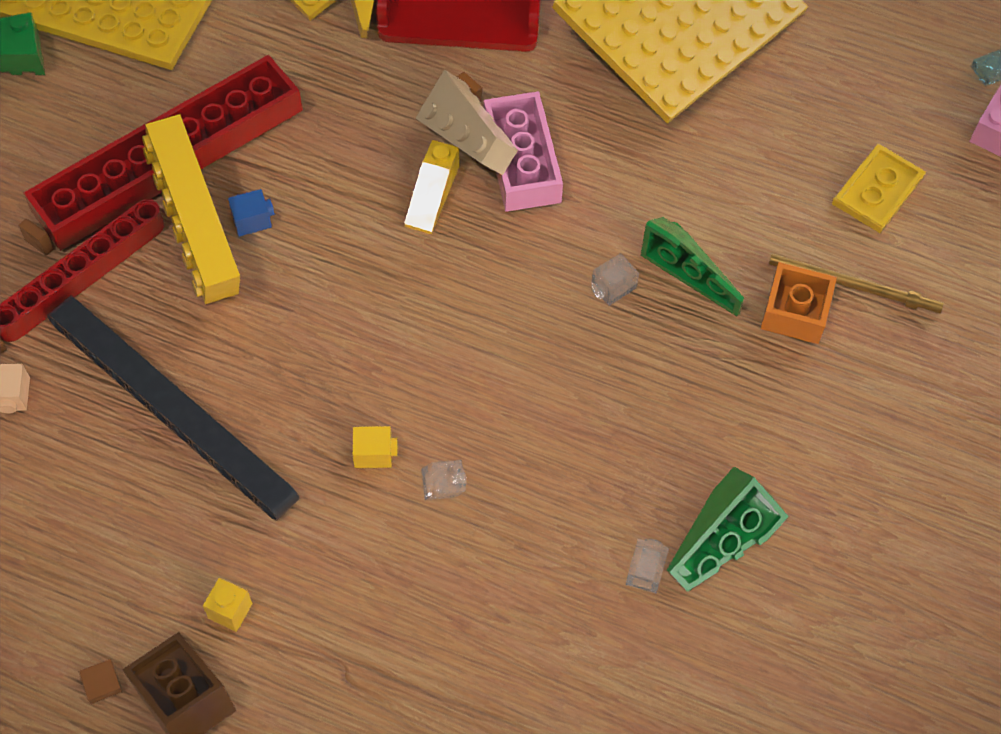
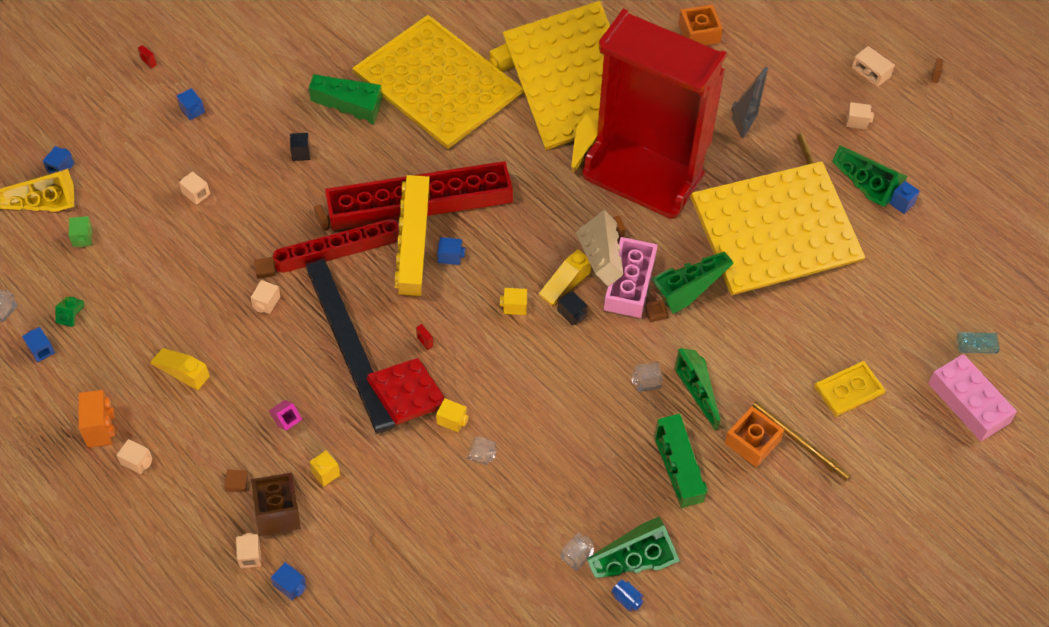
camera: 25 degrees right, 5 degrees down
(129, 551) = (285, 415): none -> dark pink brick
(276, 350) = (424, 337): none -> red tile
(290, 439) = (406, 390): none -> red plate
(378, 248) = (514, 301): none -> yellow brick
(463, 226) = (572, 308): none -> black brick
(577, 184) = (656, 310): none -> dark orange tile
(601, 132) = (684, 285): none -> green wedge
(719, 377) = (679, 460): none -> green wedge
(747, 597) = (627, 595): none -> blue brick

